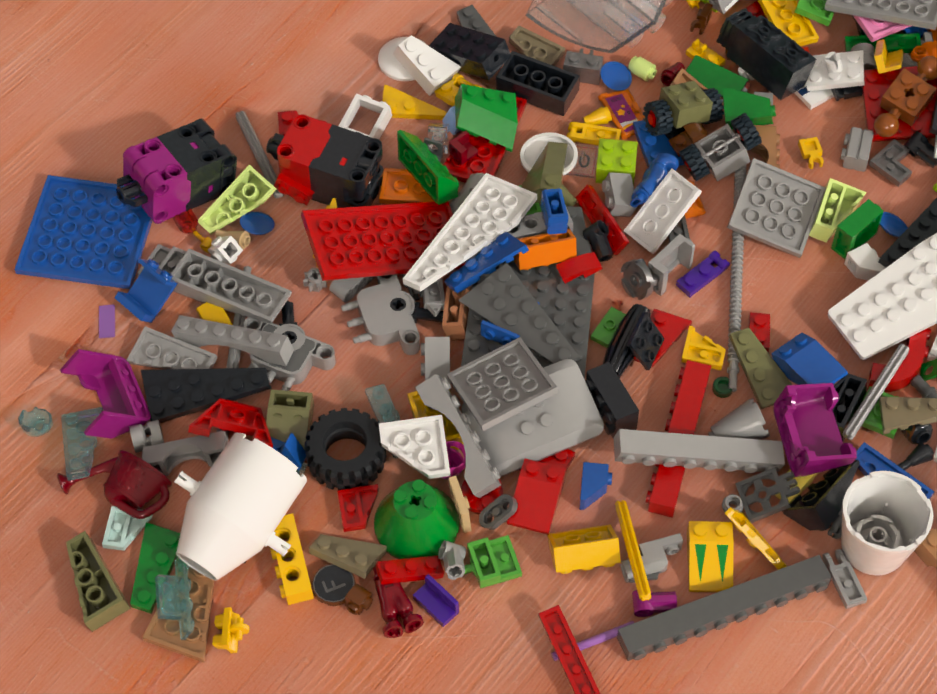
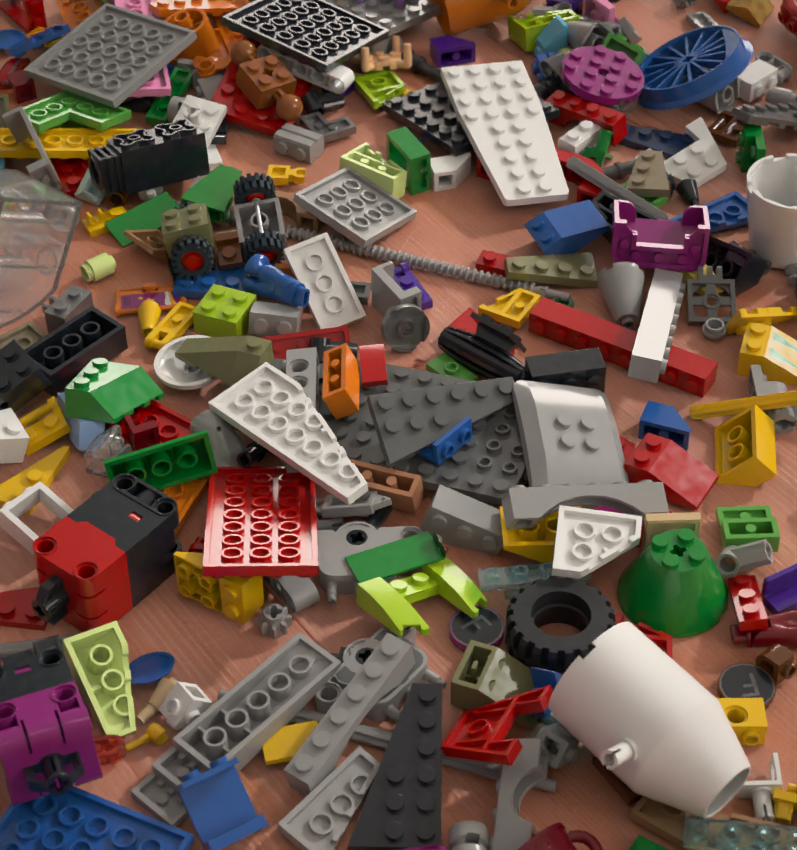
camera: 75 degrees left, 15 degrees down
(236, 605) = (762, 791): none -> white bracket
(293, 189) = (120, 609): red plate -> none
(339, 331) = (392, 600): none -> lime wedge
(344, 396) = (485, 628): none -> black tile
(348, 554) = (713, 655): dark tan wing -> none
(383, 332) = (397, 557): none -> green piece
(485, 262) = (343, 413): blue wing -> none
(499, 510) = (687, 505): dark grey plate -> none
(502, 383) = (535, 440): light grey plate -> none
(554, 211) = (305, 346): blue brick -> none
(616, 75) = (100, 290): blue piece -> none
(670, 73) = (120, 248): dark red cone -> none
(887, 61) = (204, 85): yellow panel -> none

